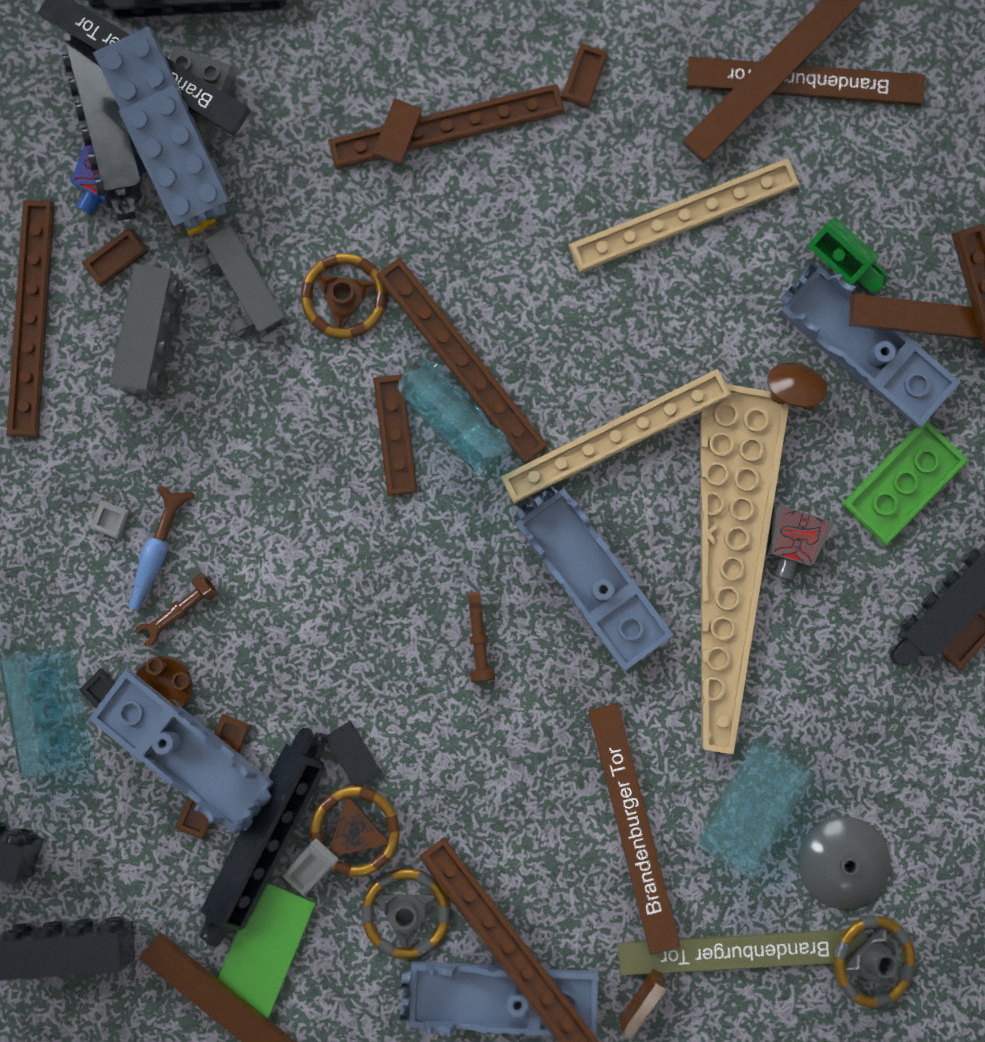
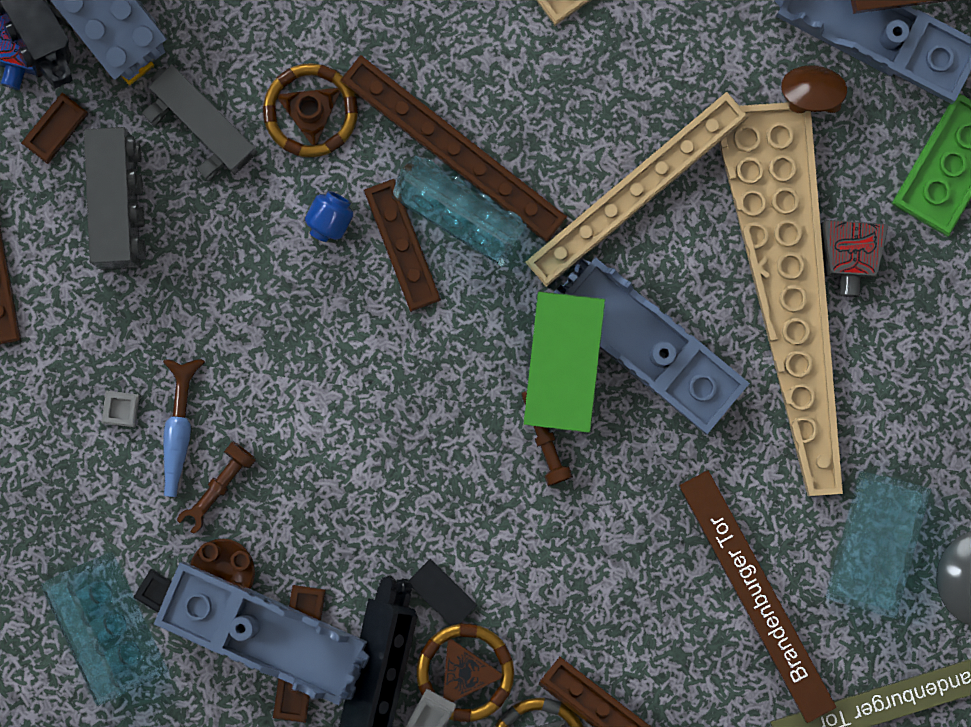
camera: 20 degrees left, 0 degrees up
(336, 394) = (329, 216): none -> blue head
(512, 575) = (564, 361): none -> bright green tile

